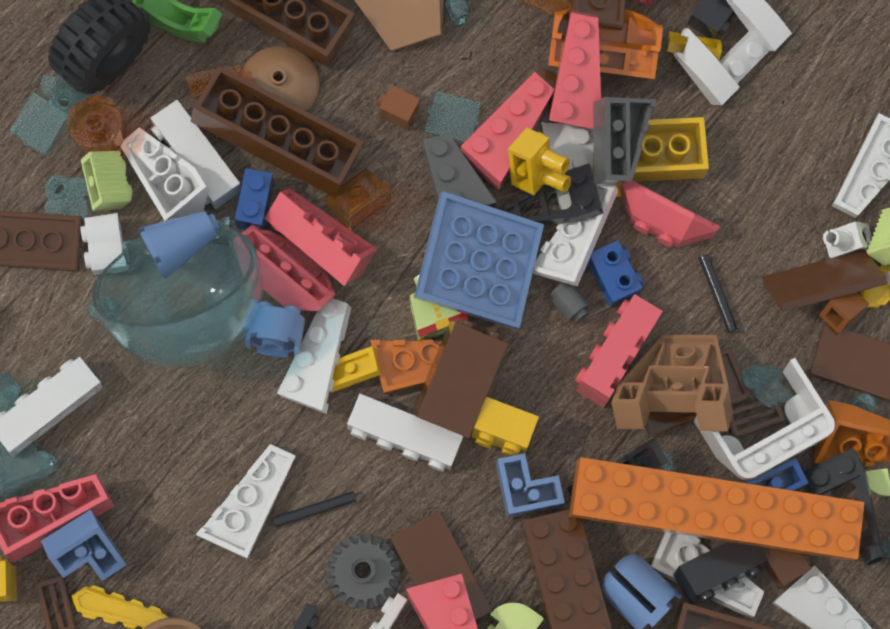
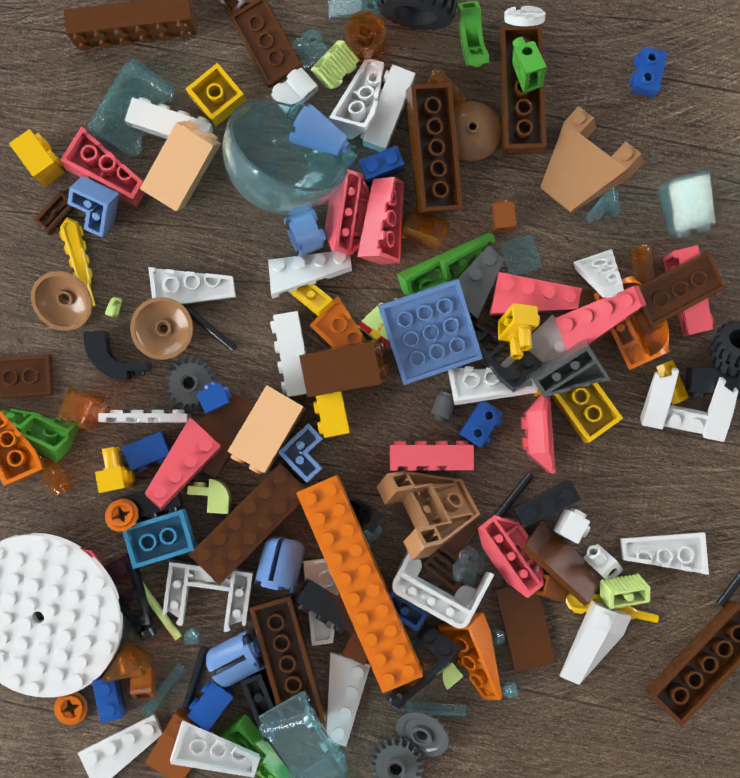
camera: 70 degrees right, 10 degrees up
(49, 331) = (216, 94): none -> yellow brick
(107, 417) = (180, 164): none -> light nougat brick
(216, 606) = (113, 307): none -> yellowish green tile
(279, 539) = (147, 330): none -> medium nougat dish
(400, 546) = (214, 397): none -> blue brick
(413, 209) = (443, 267): none -> bright green wedge
(475, 512) = (266, 430): none -> light nougat brick
(531, 40) = (601, 273): none -> white wing
(746, 258) = (546, 503): none -> black brick
(767, 332) = (503, 543): none -> coral wedge
(788, 244) = (572, 525): none -> white brick

